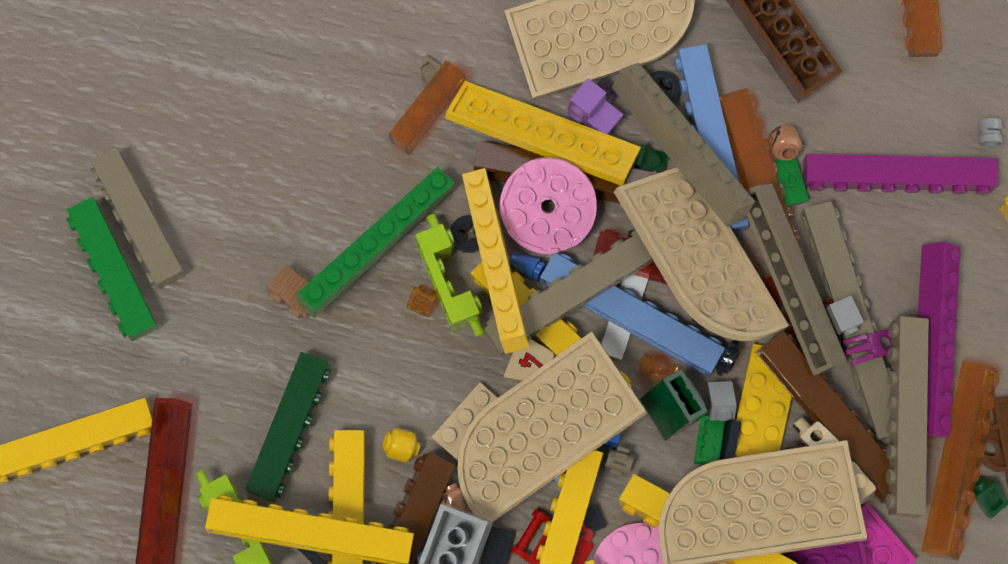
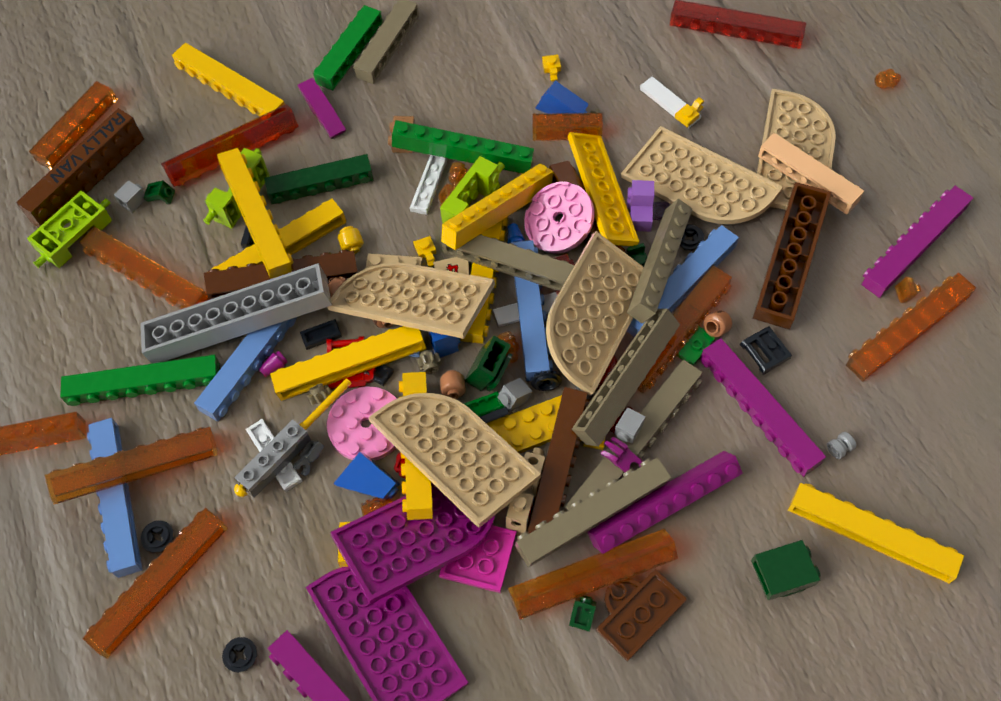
camera: 65 degrees right, 15 degrees down
(182, 359) = (321, 108): none -> magenta slope
(322, 58) = (551, 65): none -> yellow plate
(386, 311) = (428, 184): none -> white tile
(391, 90) = (561, 100): none -> blue slope
(401, 271) = (457, 172): none -> clear orange piece
(469, 371) = (425, 249): none -> yellow plate
(663, 455) = (452, 384): none -> nougat head
(843, 111) = (770, 346): none -> black plate

